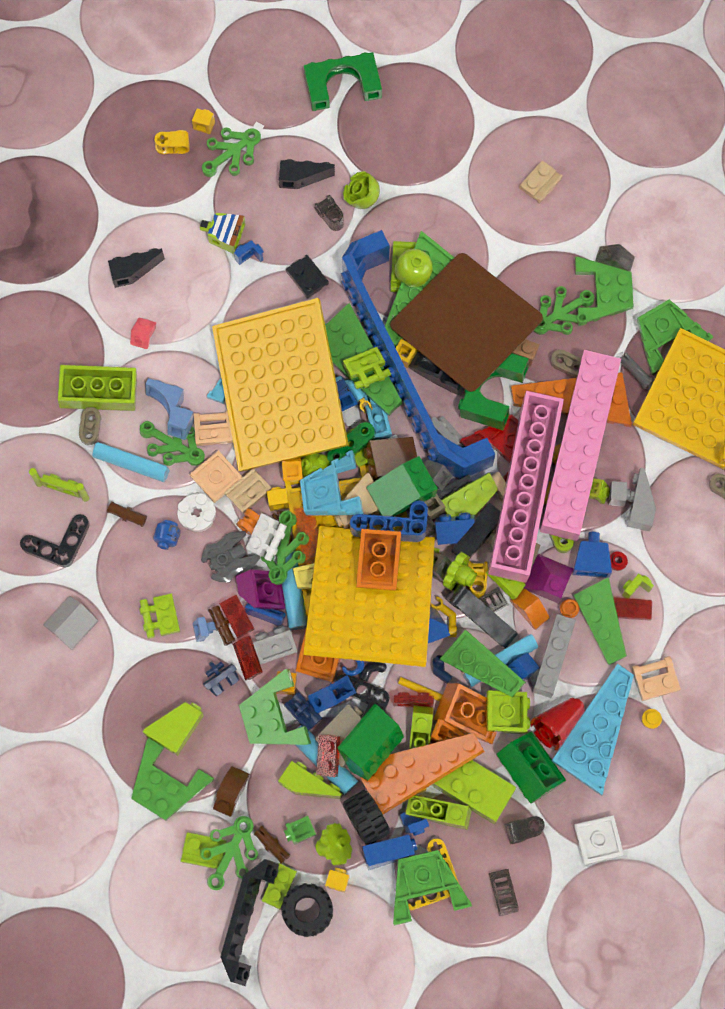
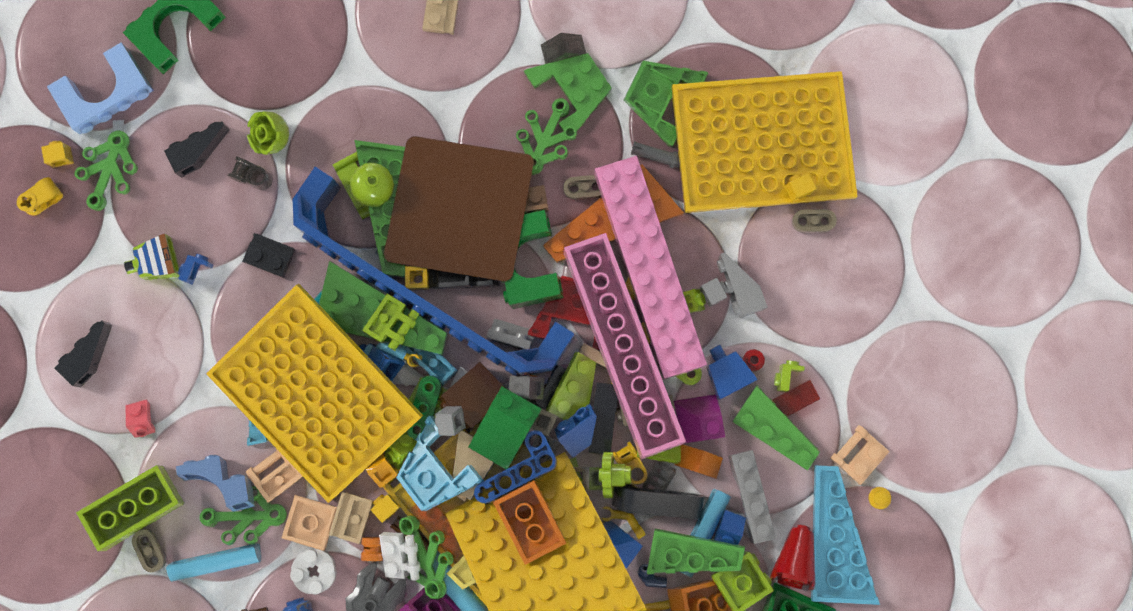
camera: 30 degrees left, 10 degrees up
(282, 106) = (130, 87): none -> light blue arch
(365, 460) = (450, 420): none -> light grey plate
(569, 608) = (736, 437): orange plate -> none

